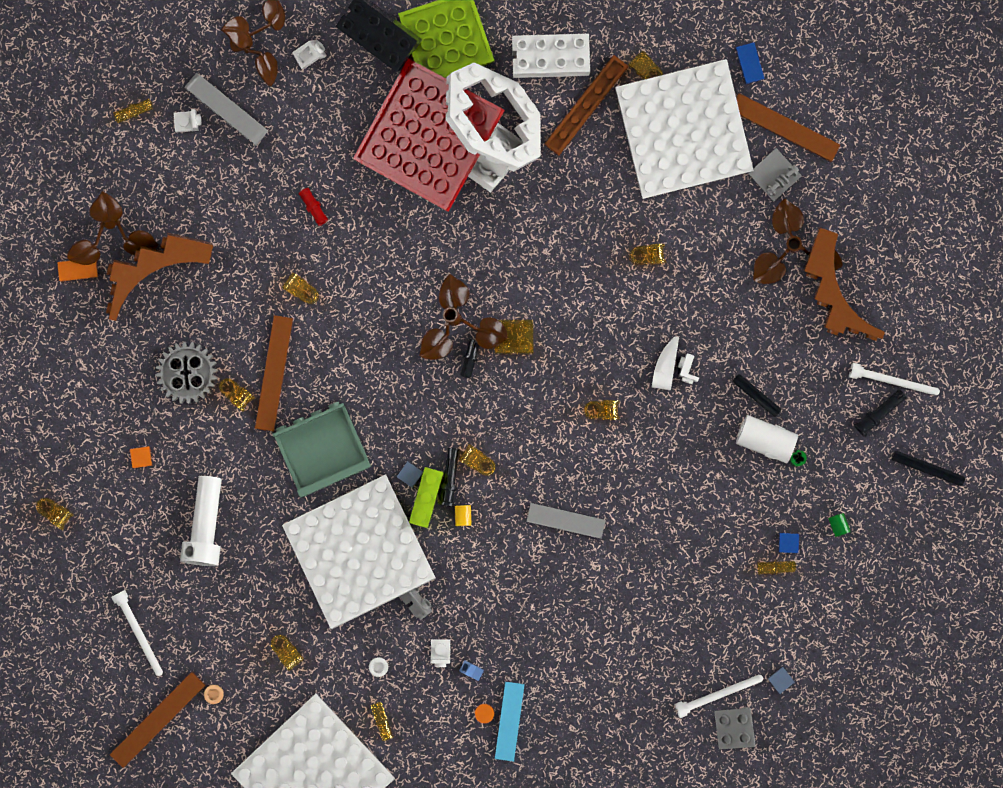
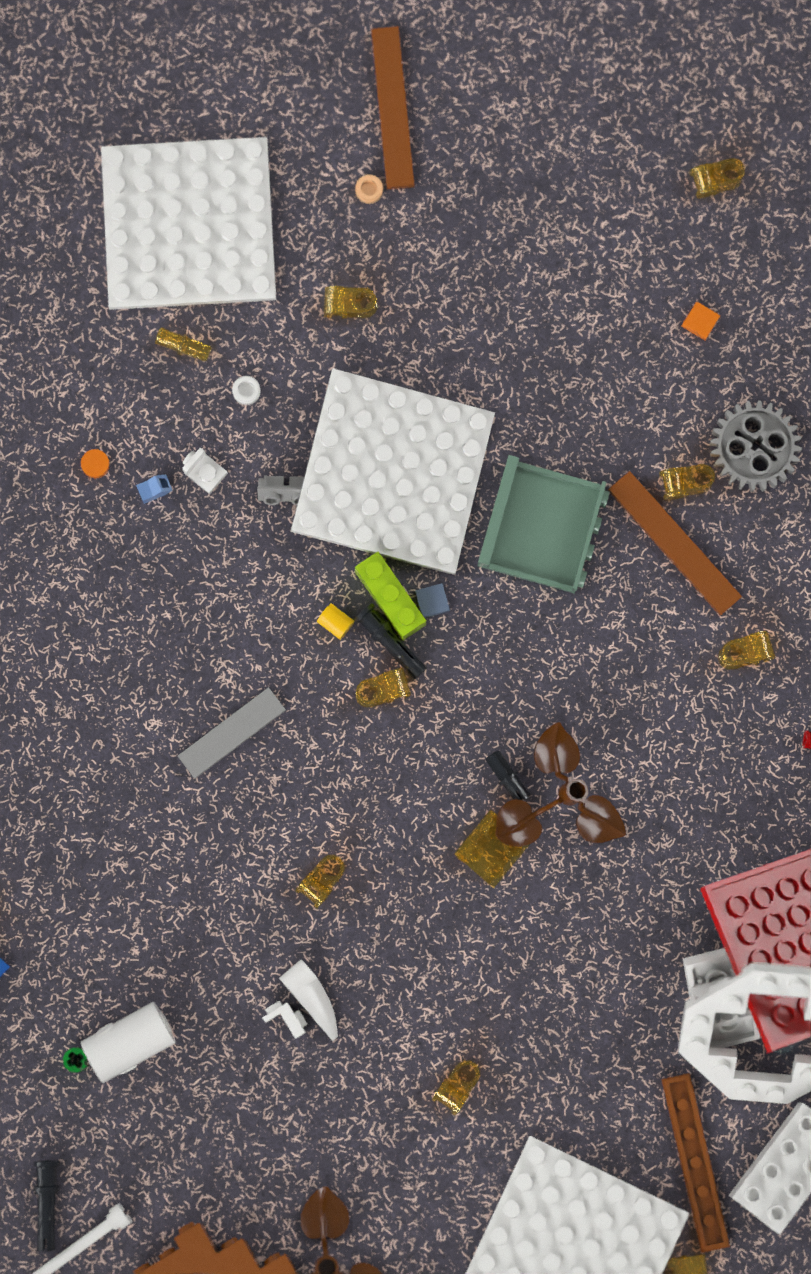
camera: 130 degrees right, 5 degrees down
(121, 600) = (557, 172): white piece -> none
(201, 546) = (543, 301): white piece -> none
(509, 721) = (62, 484): medium azure tile -> none
(757, 395) = (188, 1075): black axle -> none

